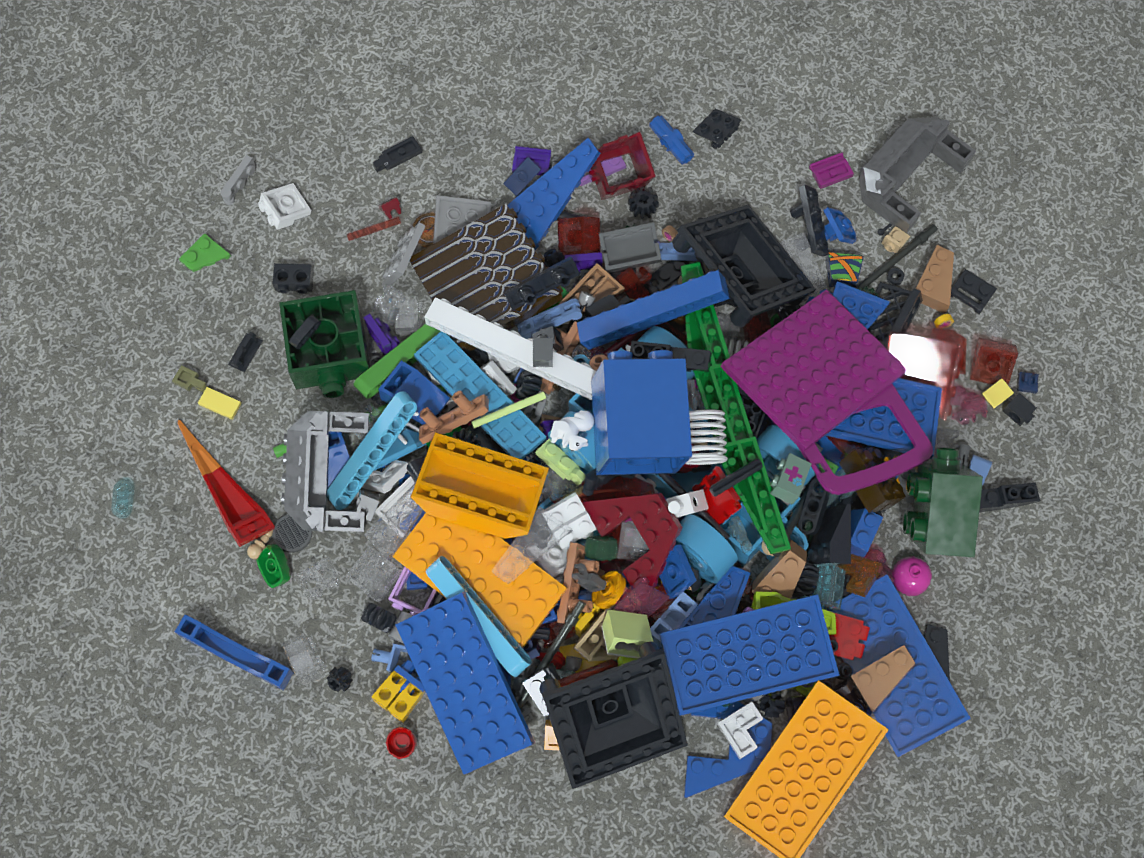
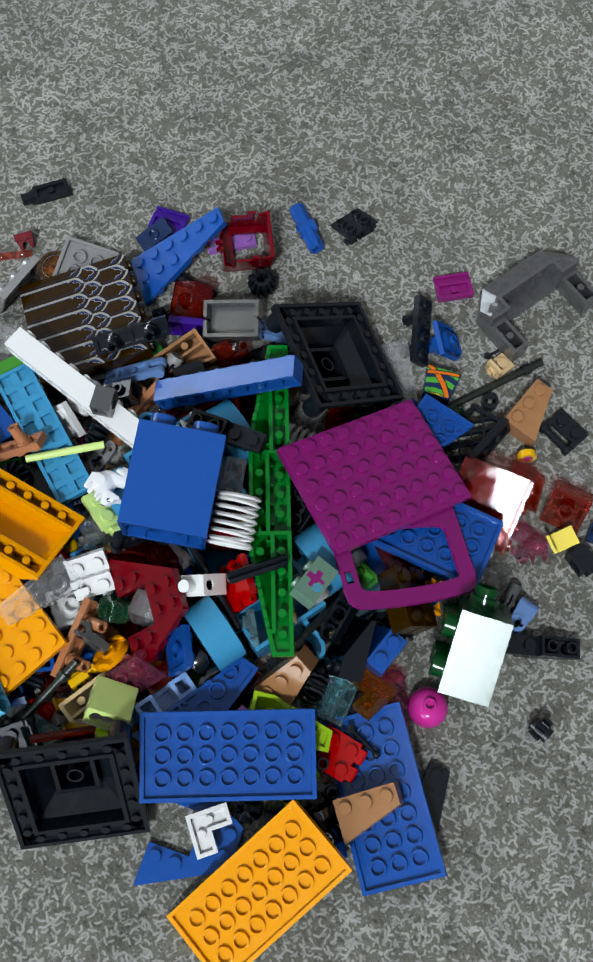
camera: 15 degrees right, 0 degrees up
(848, 610) = (375, 753): none -> black hinge
(1020, 572) = (540, 729): none -> black gear

